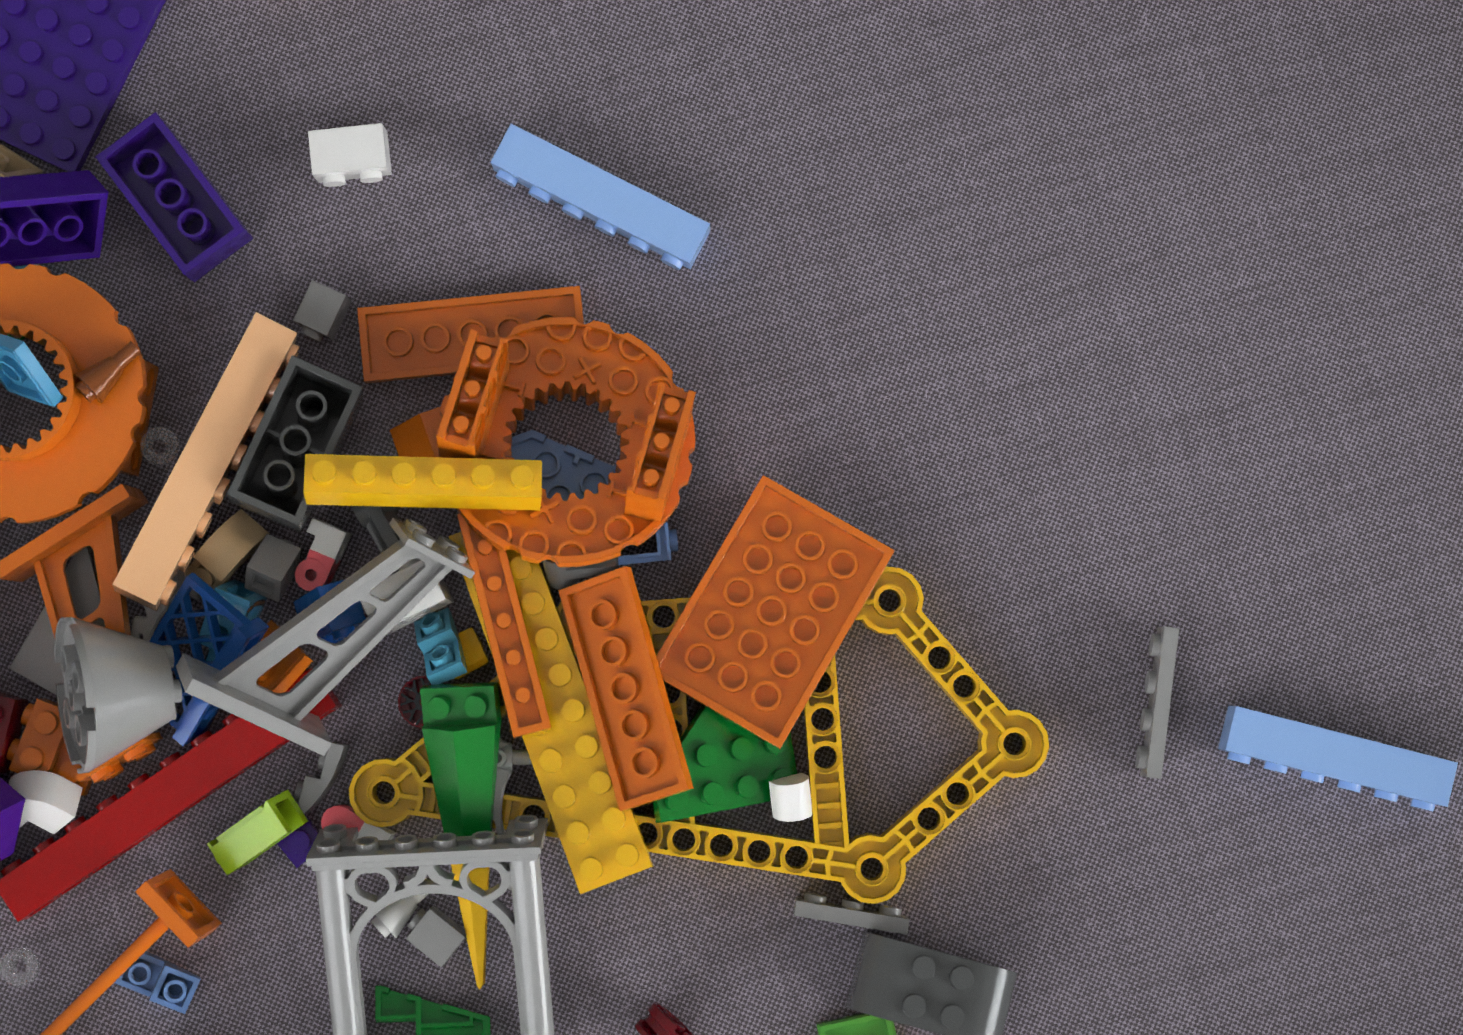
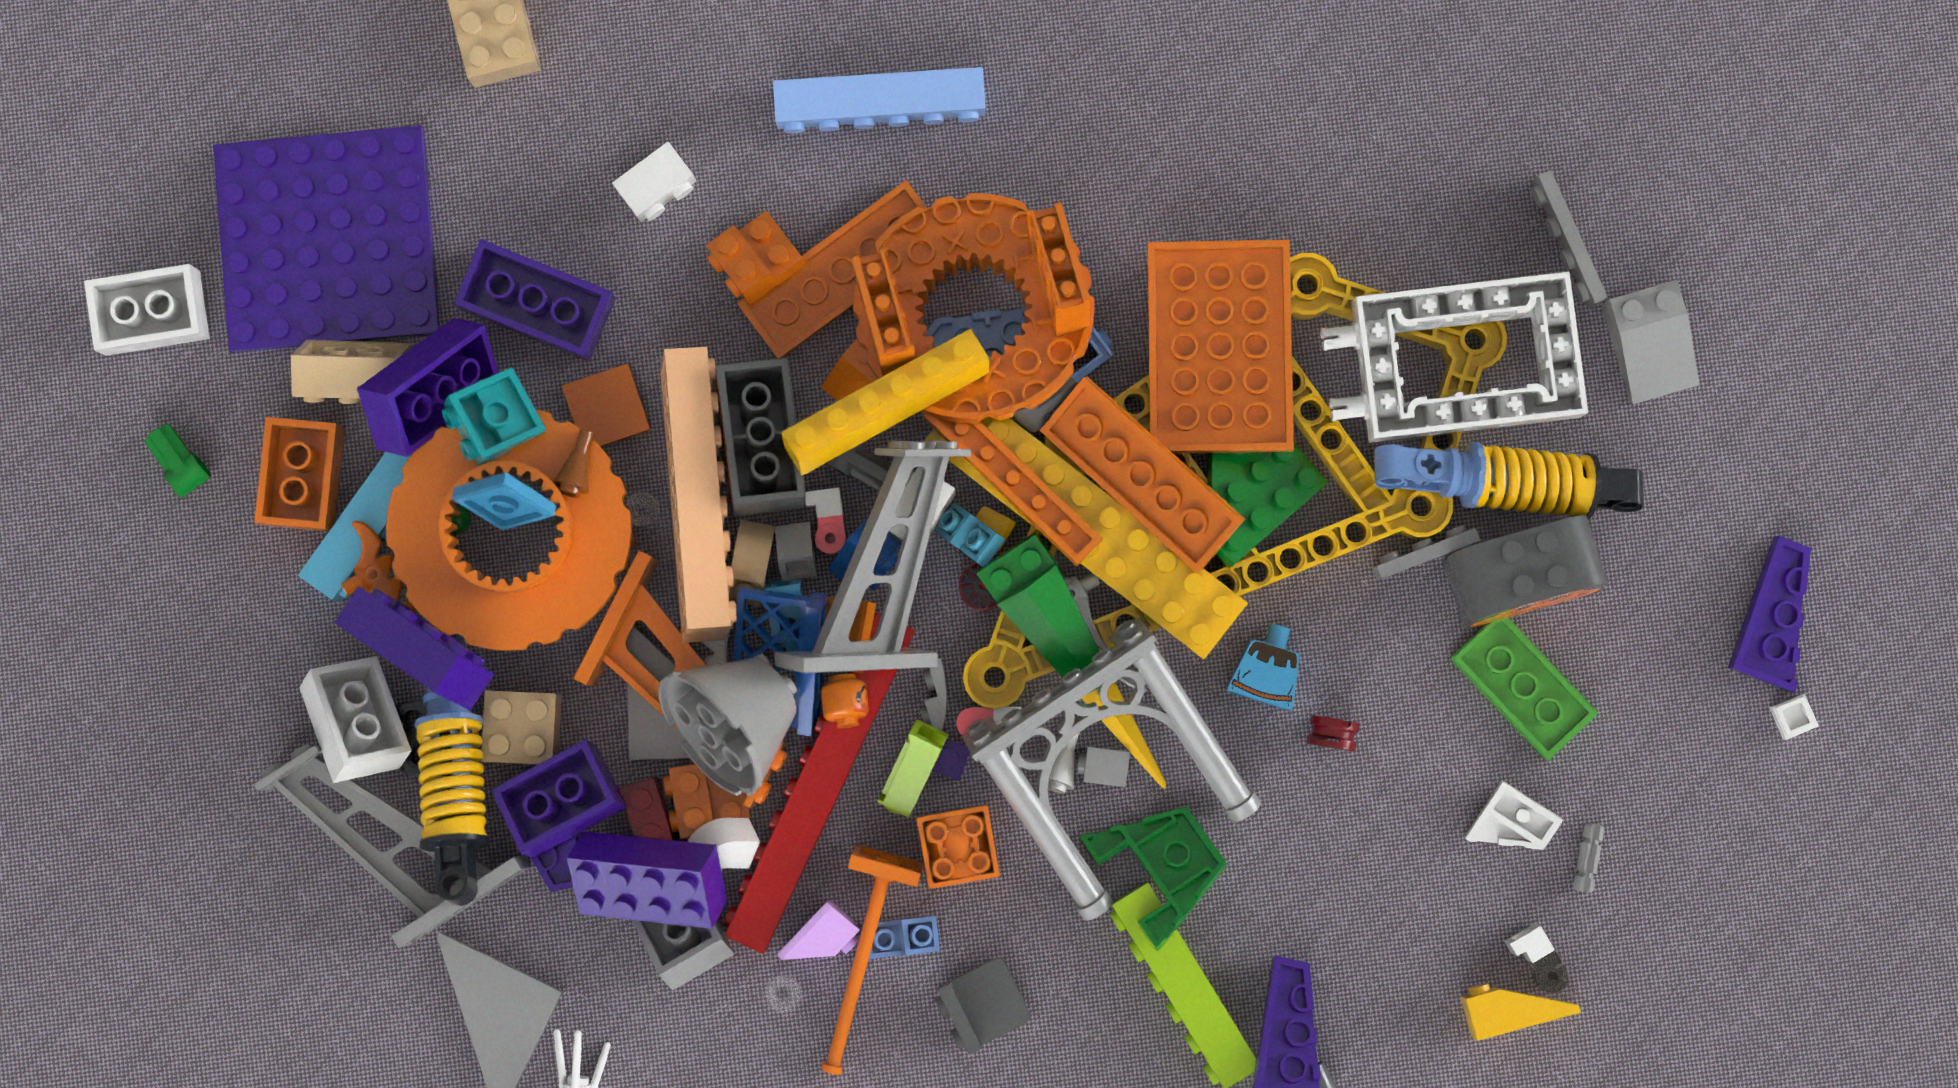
camera: 30 degrees left, 0 degrees up
(55, 282) = (492, 417): none -> teal plate
(83, 937) = (823, 935): none -> lavender slope
(184, 333) = (607, 405): none -> orange tile
(228, 736) = (844, 700): none -> orange head
(254, 930) = (958, 846): none -> orange brick
(321, 312) = (709, 323): light grey brick -> none
(397, 276) = (754, 257): none -> orange plate
(638, 936) = (1267, 670): none -> dark azure torso
(791, 798) = (1323, 487): white brick -> none
(933, 672) = (1380, 316): none -> white brick
(970, 896) = (1512, 478): none -> piece
(1180, 843) = (1652, 341): none -> light grey slope
(1337, 756) = (1735, 199): light blue brick -> none

